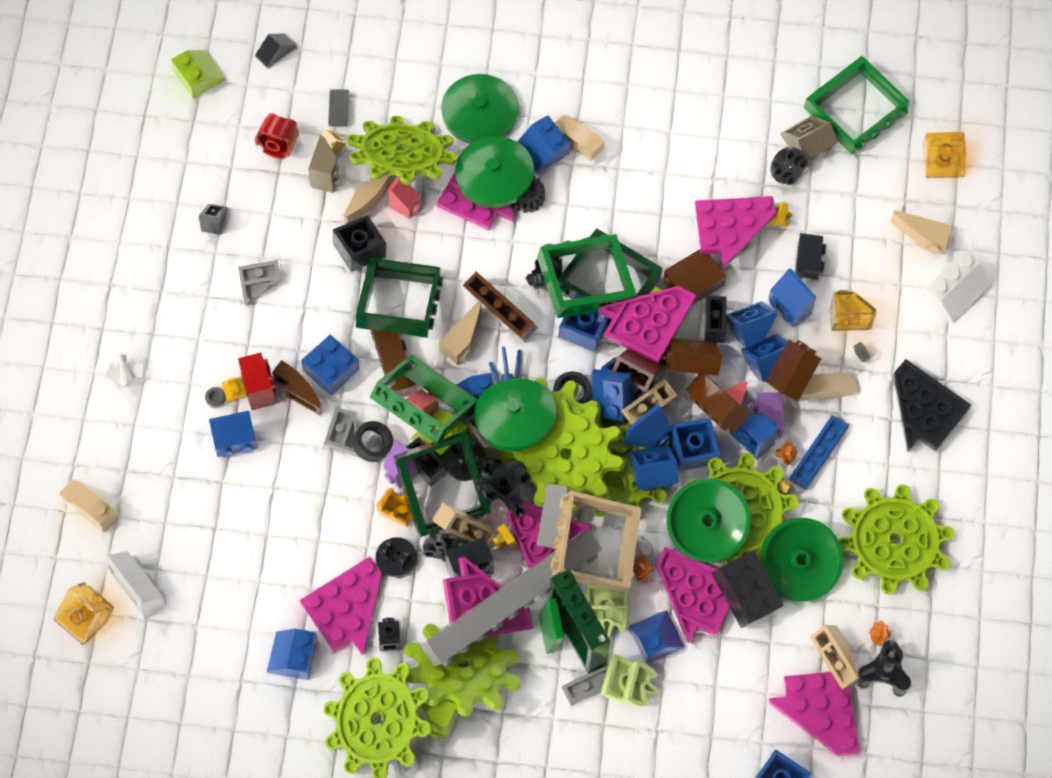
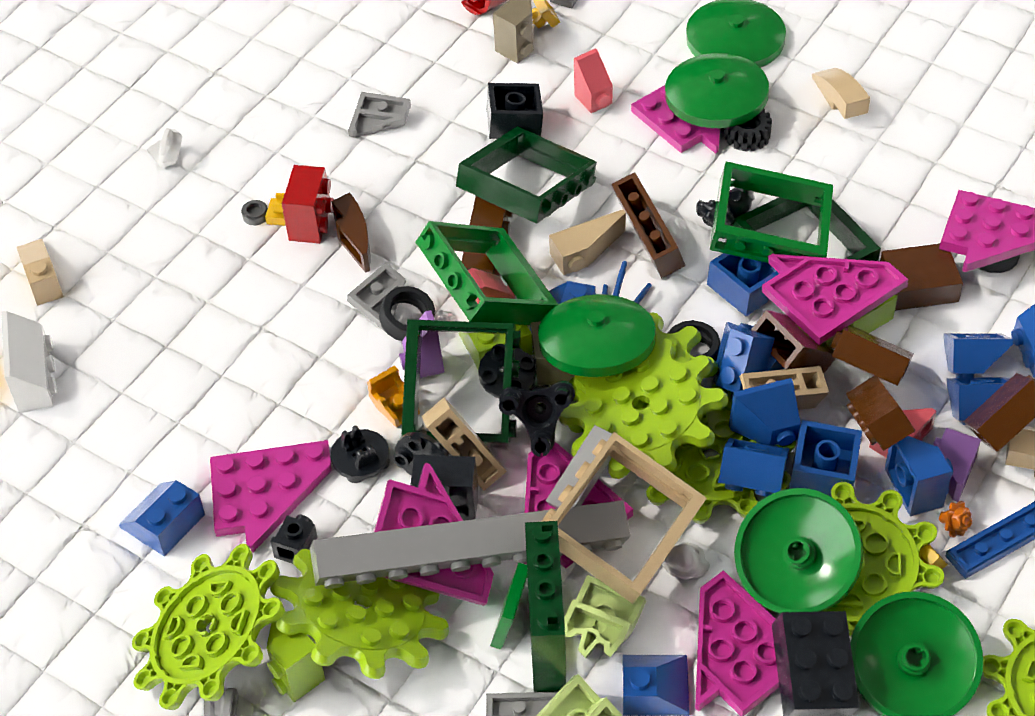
camera: 30 degrees right, 15 degrees down
(212, 218) = (362, 43): slope -> none
(233, 434) = (245, 247): blue slope -> none
(330, 364) = (403, 217): blue brick -> none
(366, 198) = (550, 71): tan slope -> none
(401, 149) = (615, 34): lime plate -> none
(428, 464) = (458, 361): black brick -> none
(505, 538) = (510, 482): yellow tile -> none
(545, 143) = (795, 85): blue slope -> none
(642, 569) = (677, 588): orange plant -> none
(715, 318) = (926, 326): black brick -> none

